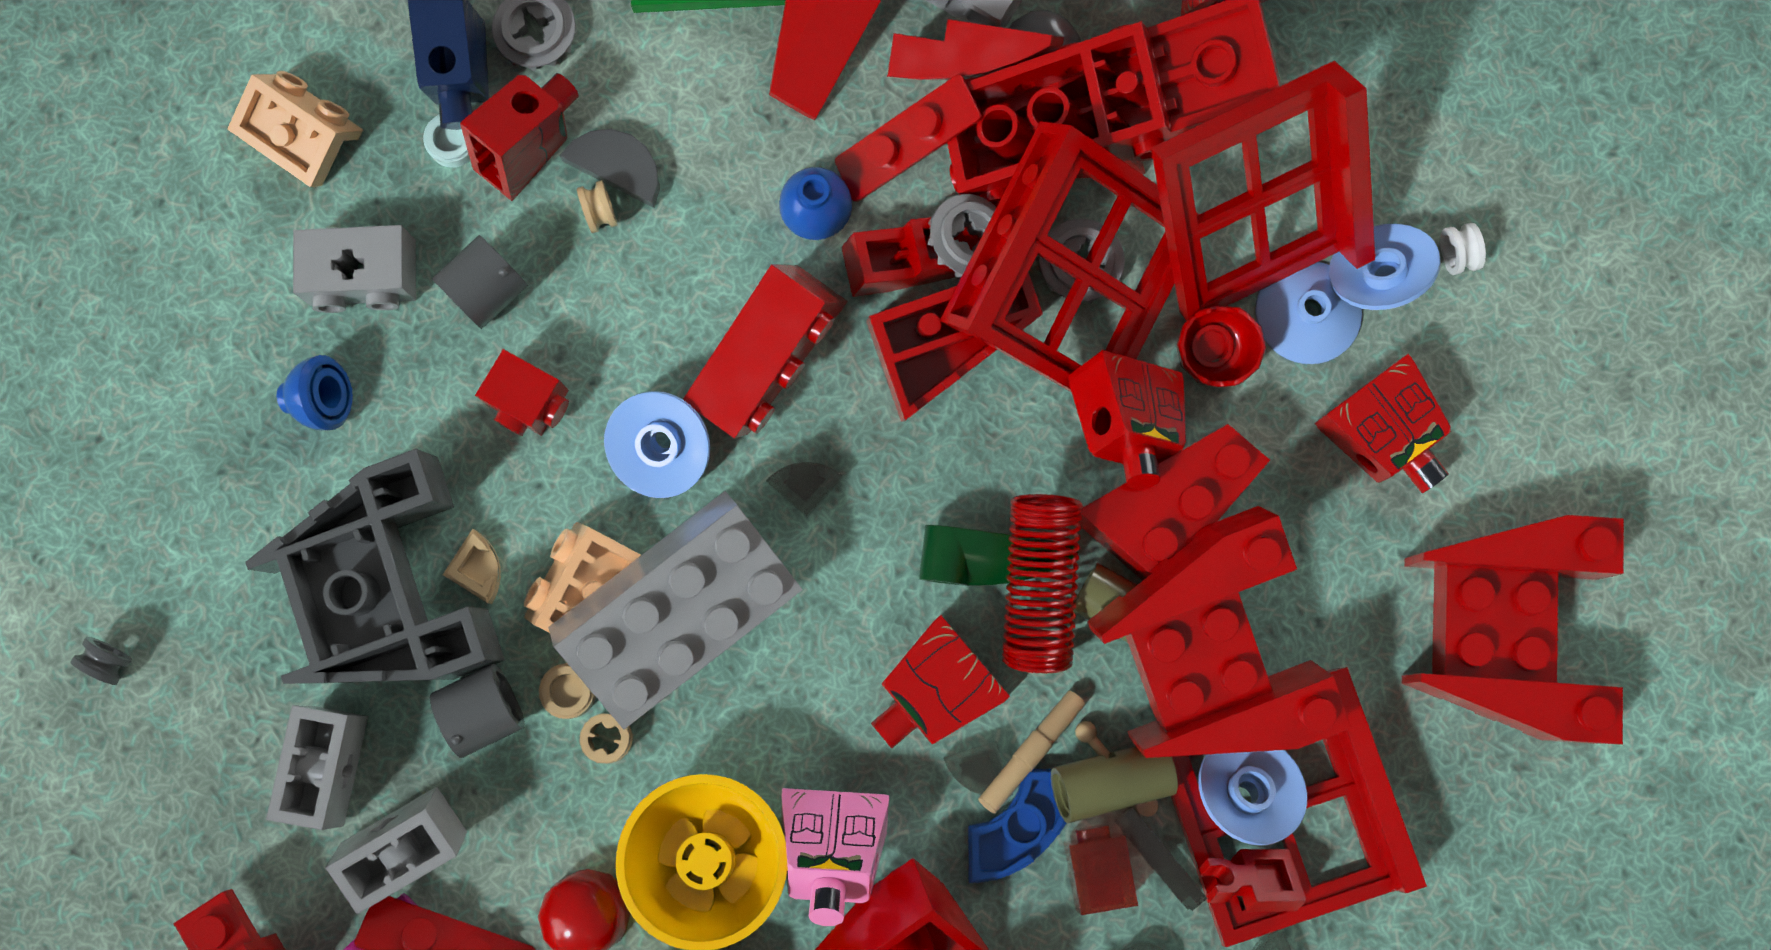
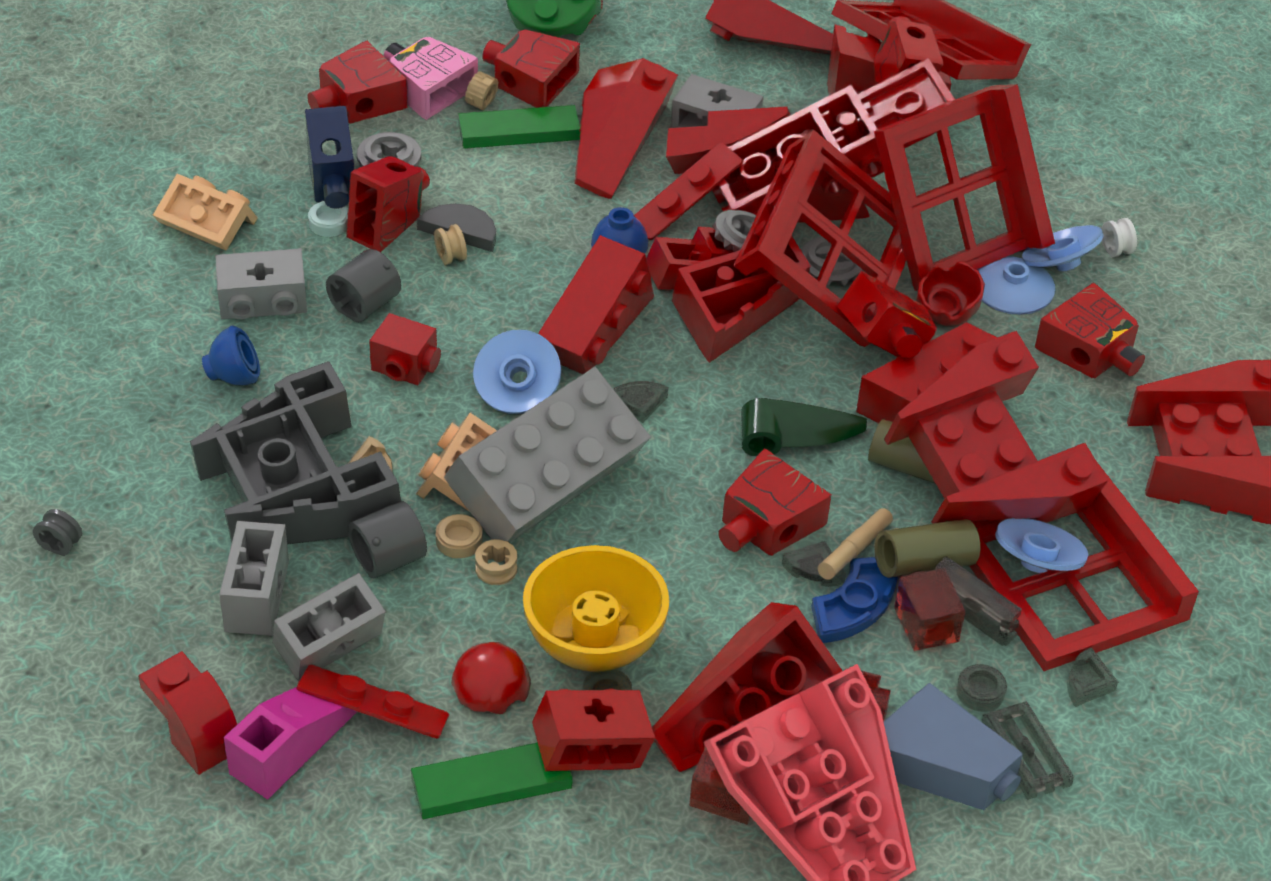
camera: 10 degrees left, 35 degrees down
(832, 848) = (704, 599): bright pink torso -> none
(1048, 513) = (847, 440): red piece -> none
(1262, 878) = (1065, 606): red plate -> none

